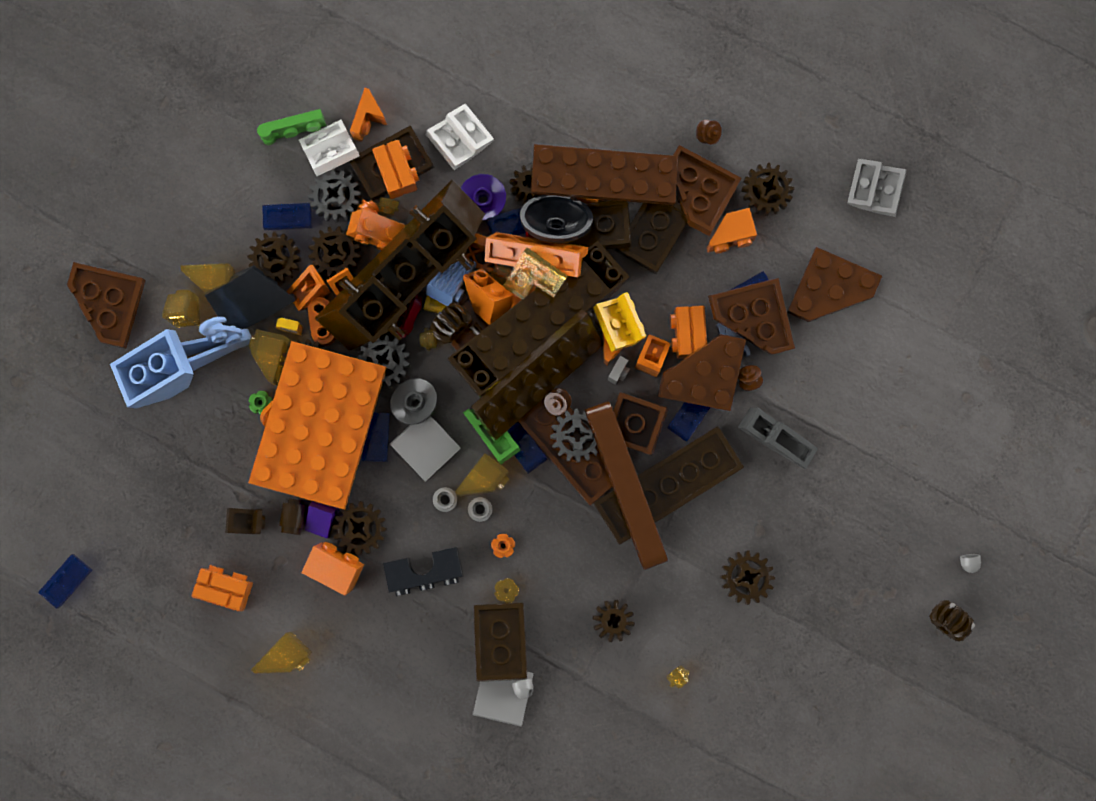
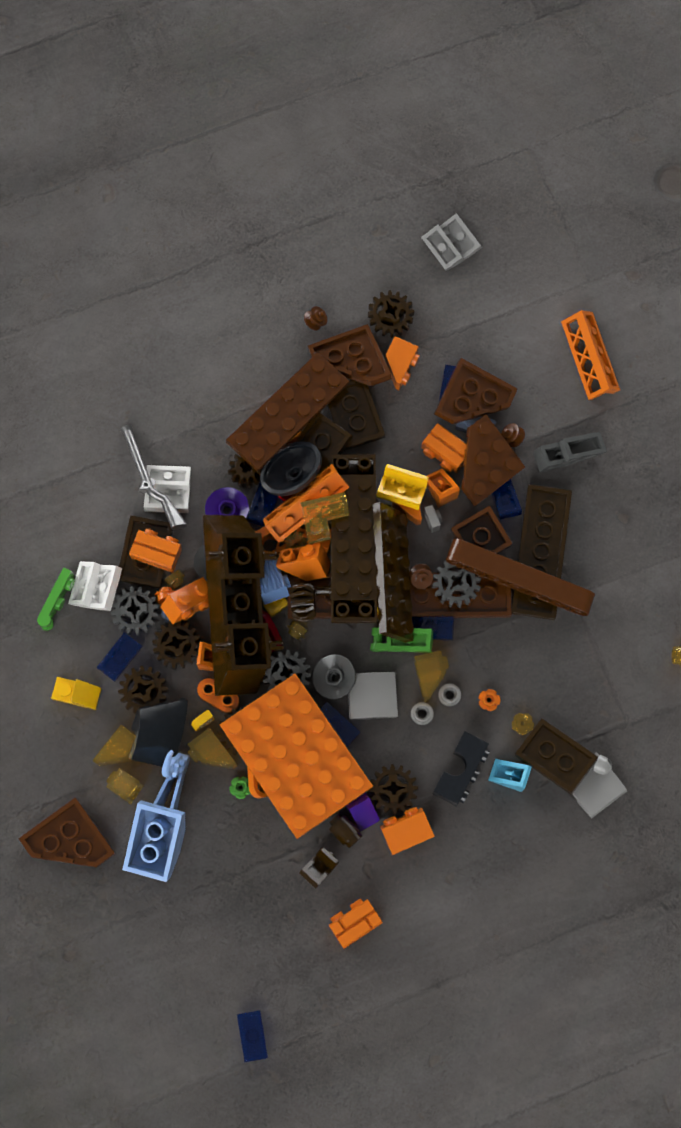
camera: 50 degrees left, 5 degrees down
(230, 208) = (76, 693): none -> yellow slope
(284, 656) = (441, 918): clear yellow slope -> none
(308, 288) = (186, 683): orange slope -> none
(367, 110) = (94, 534): orange slope -> none
(437, 159) = (173, 516): none -> flat silver piece
(452, 615) = (510, 774): none -> medium azure slope
(620, 624) = (612, 663): dark brown gear -> none
(751, 588) = (657, 553): dark brown gear -> none
(831, 286) = (494, 329): reddish brown plate -> none
(885, 386) = (597, 354): none -> orange fence

